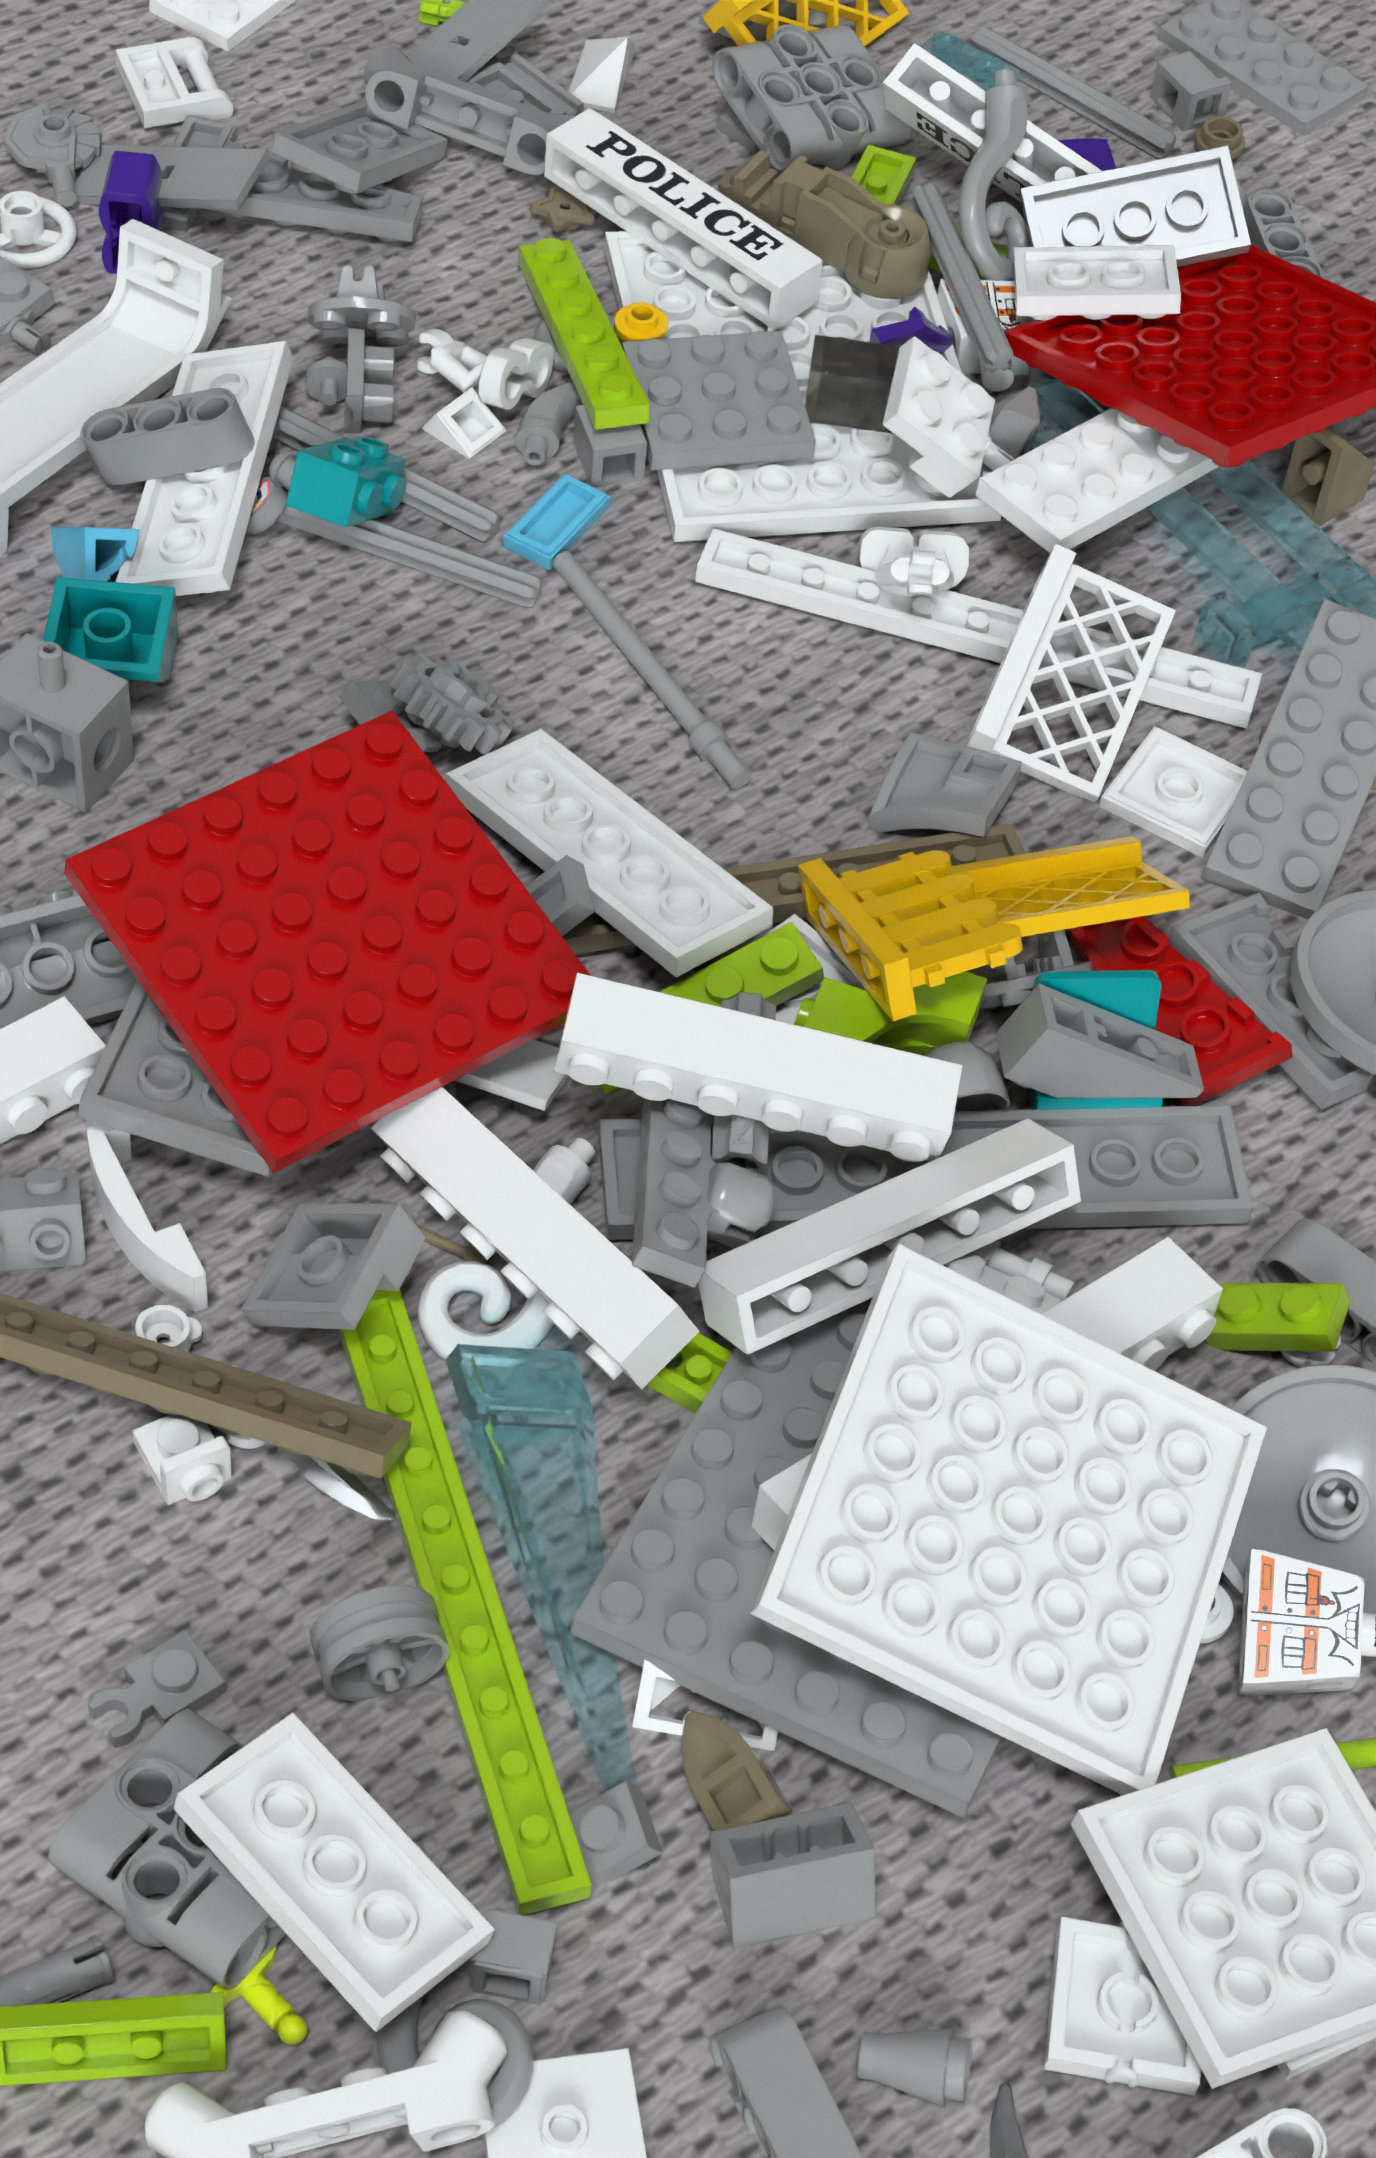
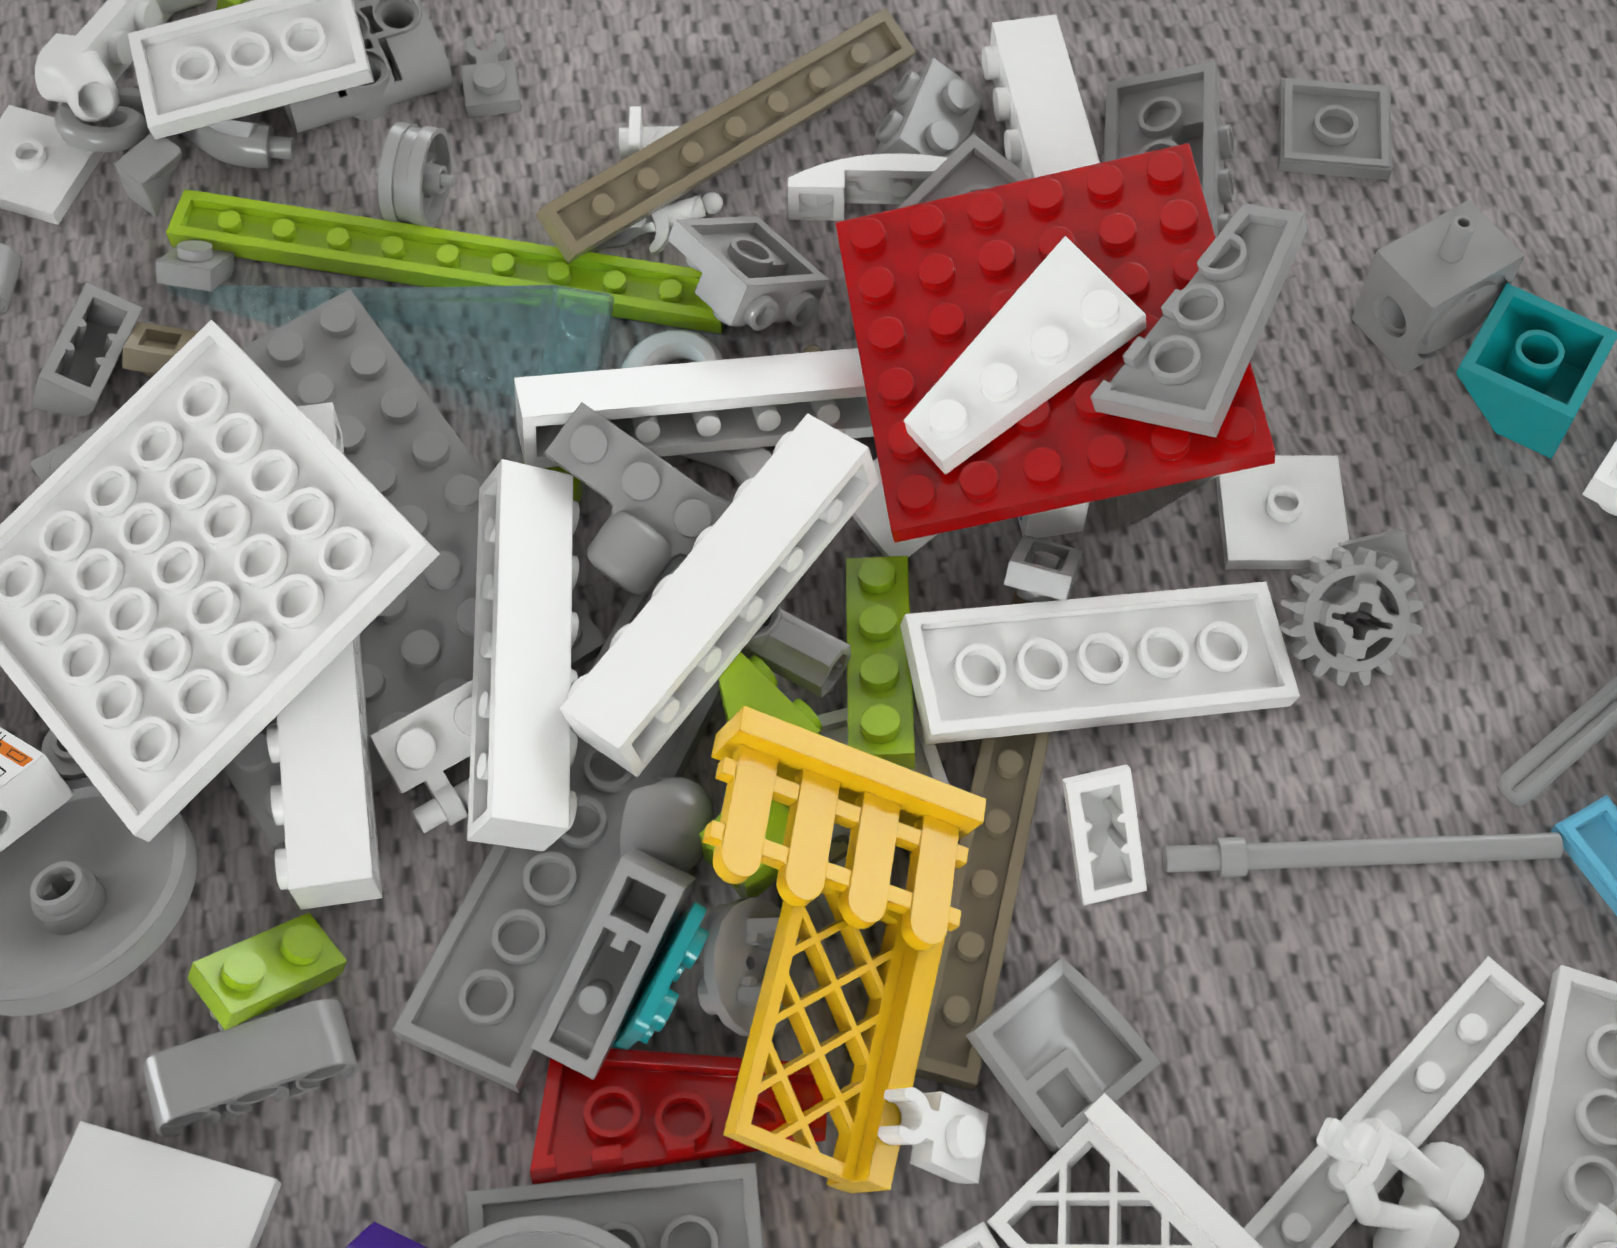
camera: 125 degrees right, 10 degrees up
(169, 1323) = (763, 161): white plate -> none
(311, 764) = (1208, 330): none -> light grey wing
(366, 902) = (1032, 349): none -> white wing
(747, 809) = (1104, 834): none -> white slope
(1064, 827) = (943, 1132): none -> white plate

